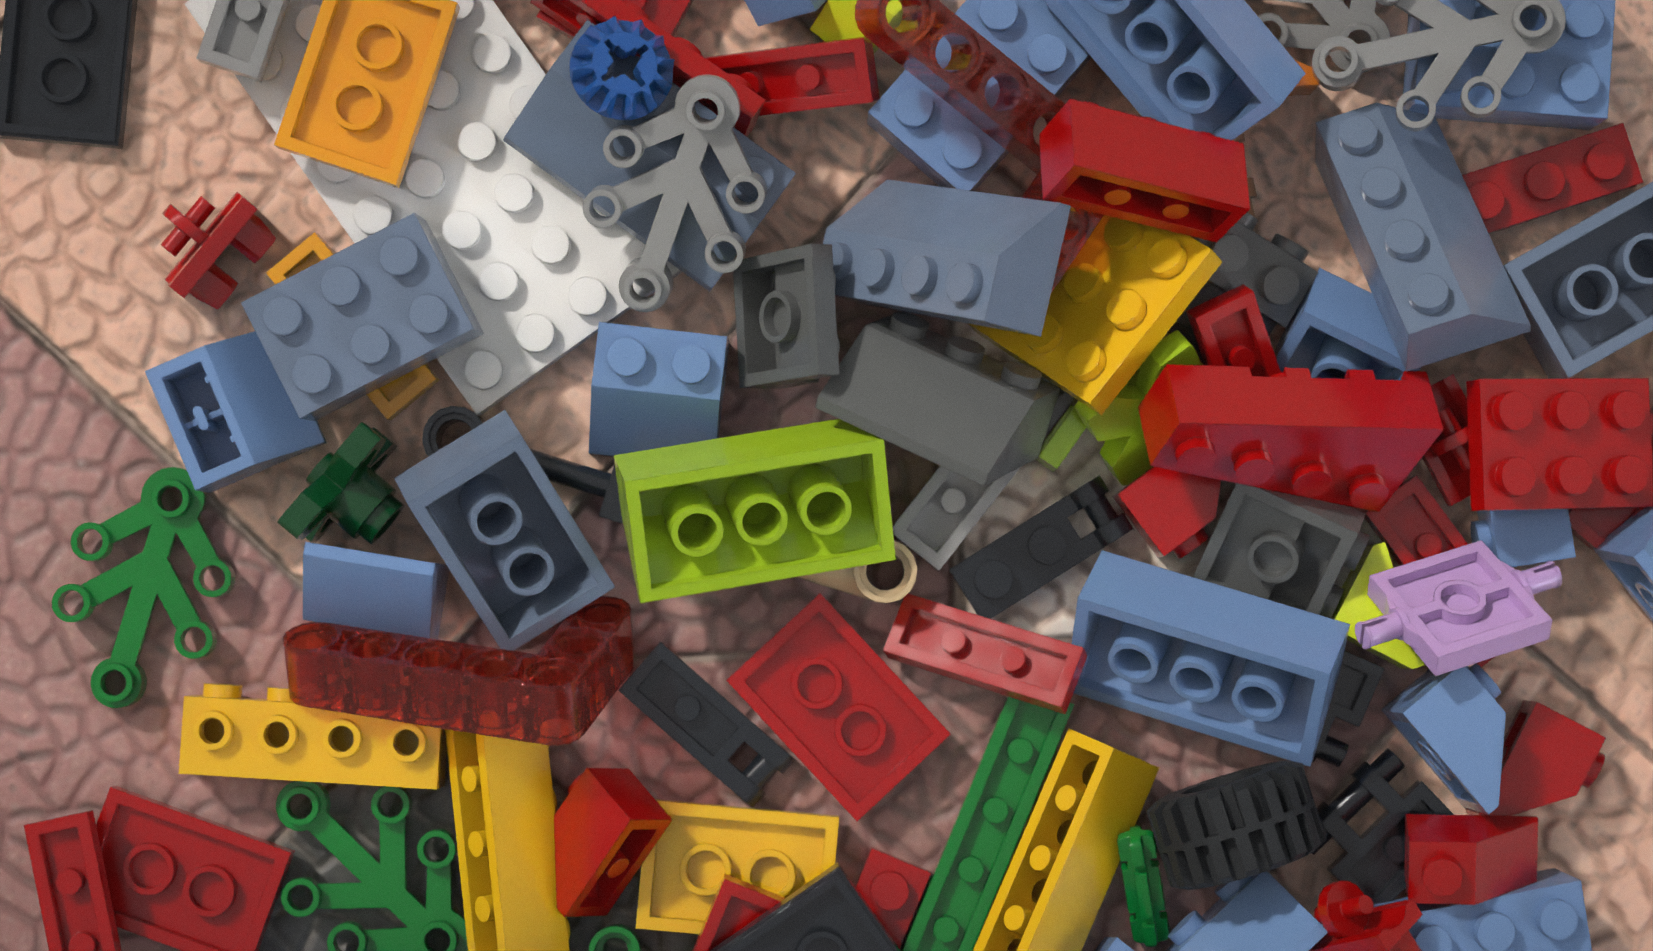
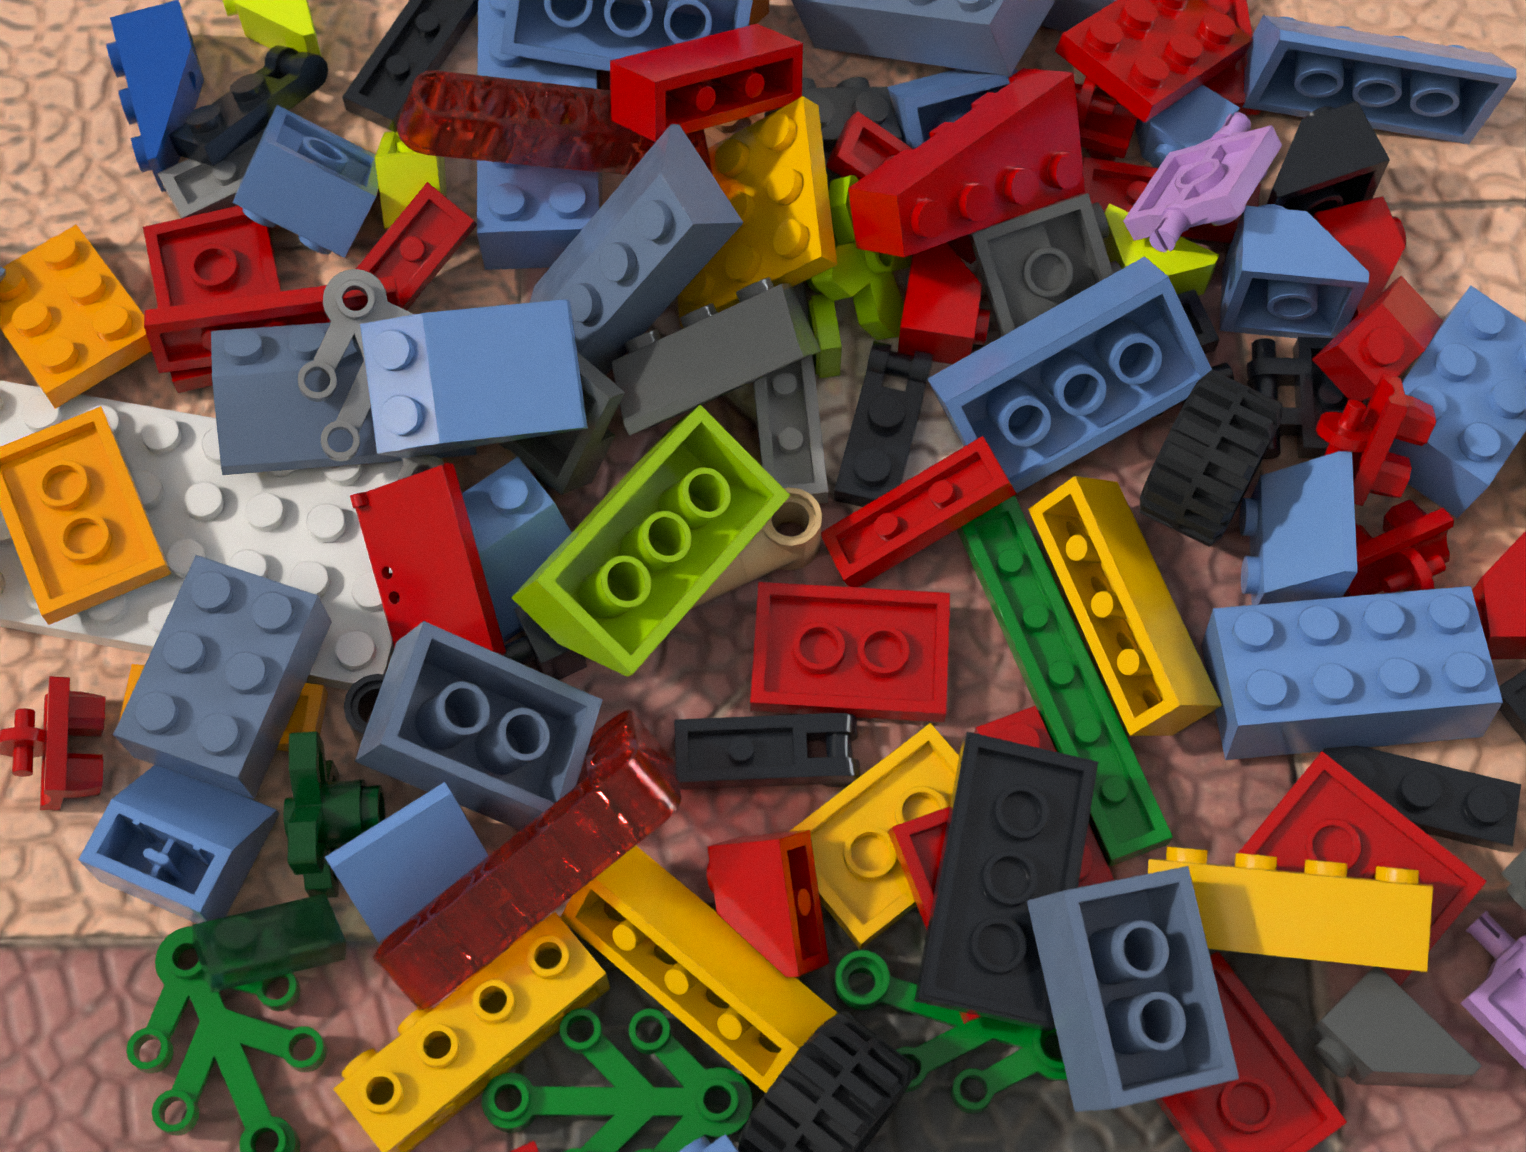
camera: 45 degrees left, 20 degrees down
(232, 543) = (268, 942): none -> clear green plate
(591, 356) = (429, 544): none -> red door
(619, 96) = (281, 344): blue gear -> none
(731, 263) = (472, 377): none -> medium blue slope
(1143, 886) = (1189, 567): green axle -> none
(1577, 674) = (1330, 161): none -> black slope

